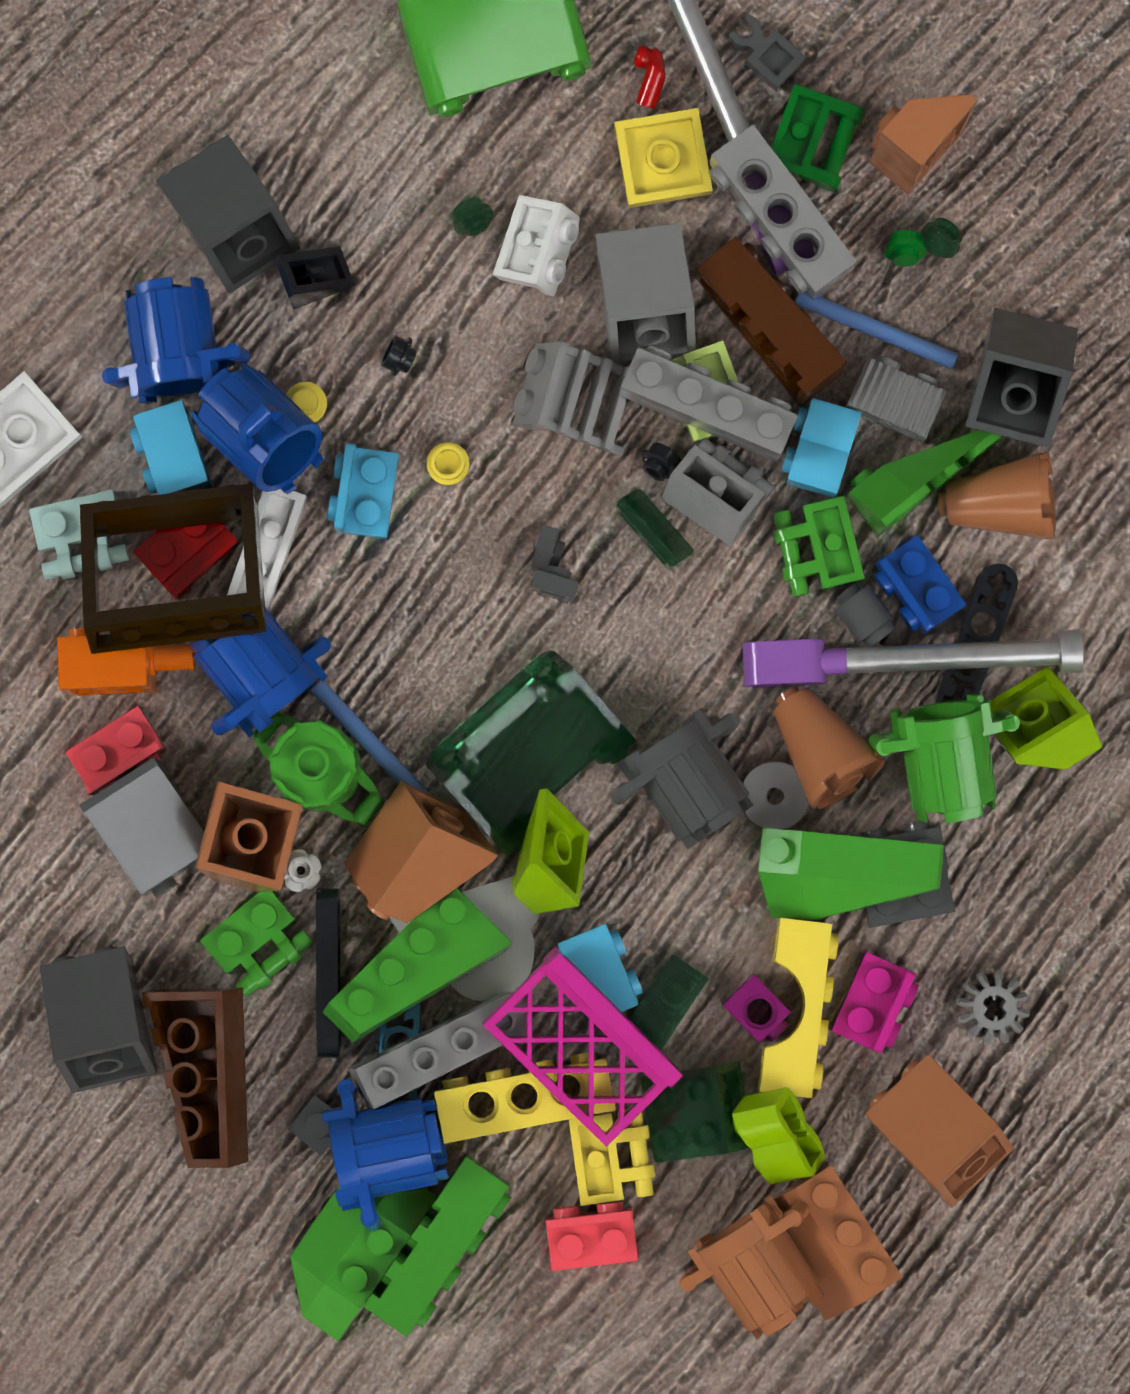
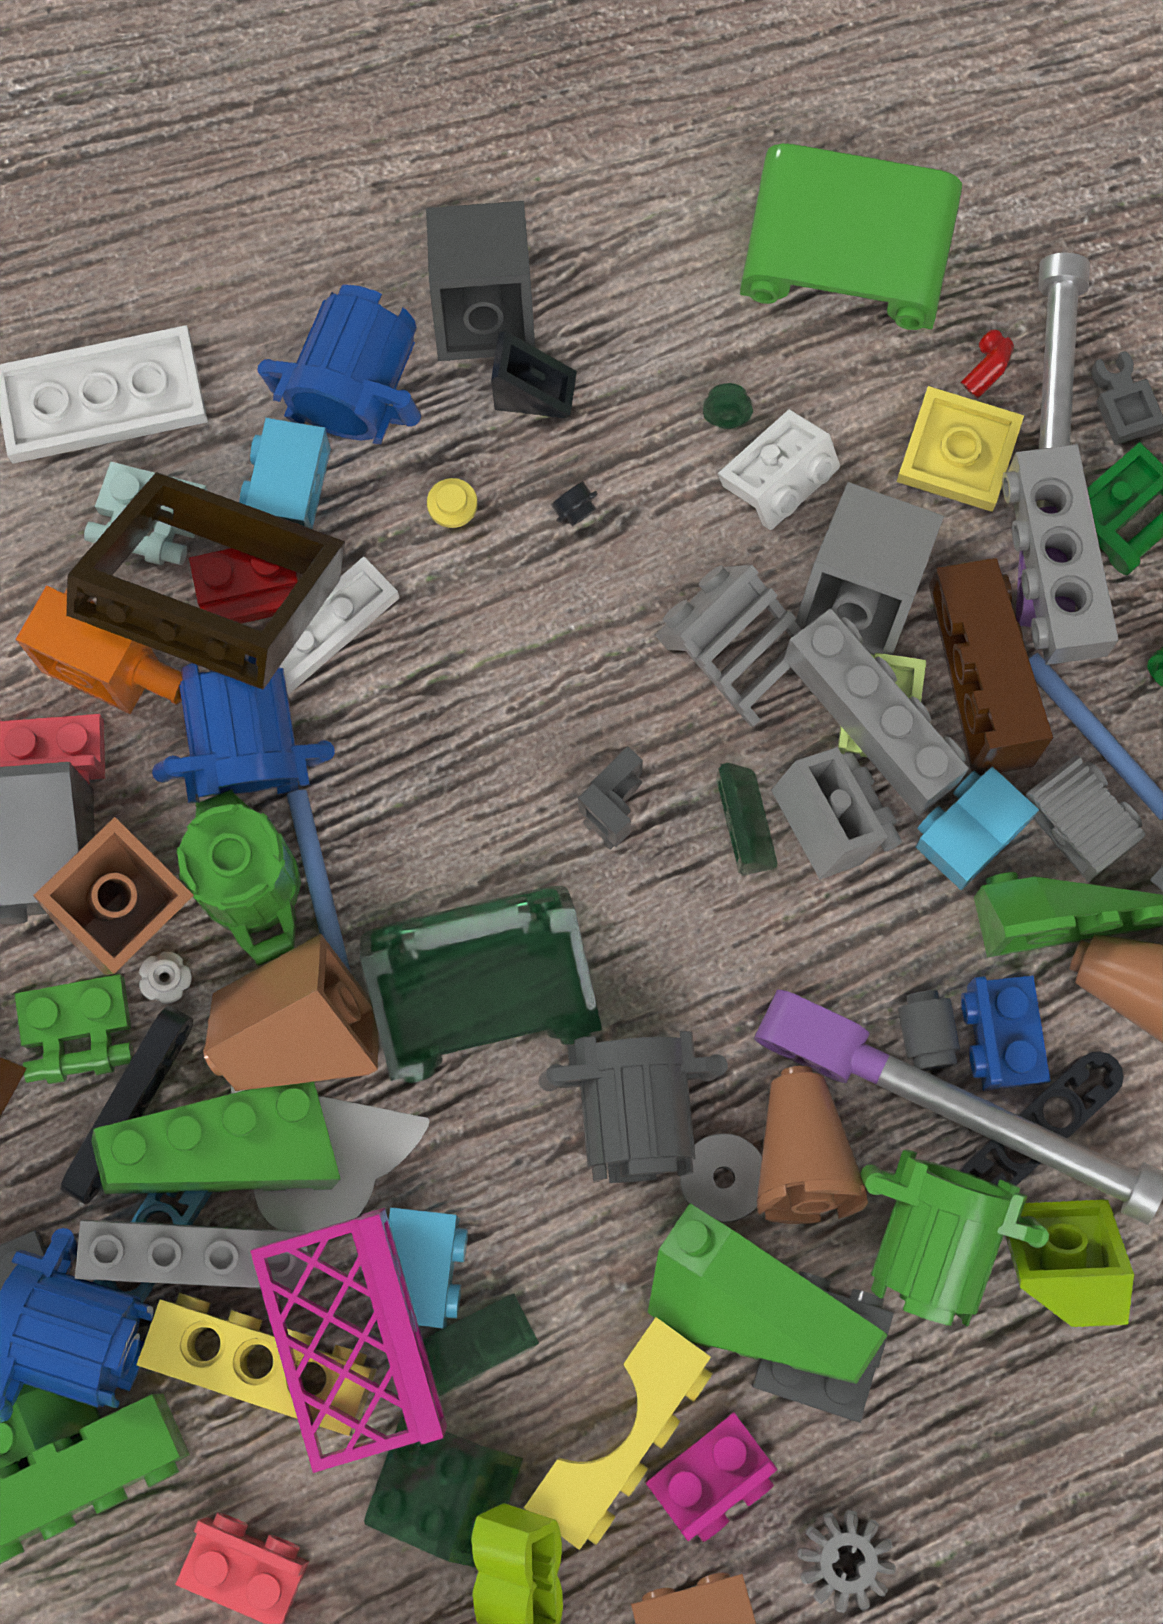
camera: 30 degrees right, 10 degrees down
(258, 428) = (384, 493): blue container -> none
(364, 492) = (459, 621): medium azure bracket -> none
(448, 463) = (564, 639): light yellow plate -> none
(551, 858) = (438, 1108): lime slope -> none
(598, 1165) = (295, 1493): light yellow plate -> none
(659, 461) = (788, 748): black plate -> none
(738, 1003) = (554, 1392): magenta brick -> none
(831, 543) = (933, 932): bright green plate -> none

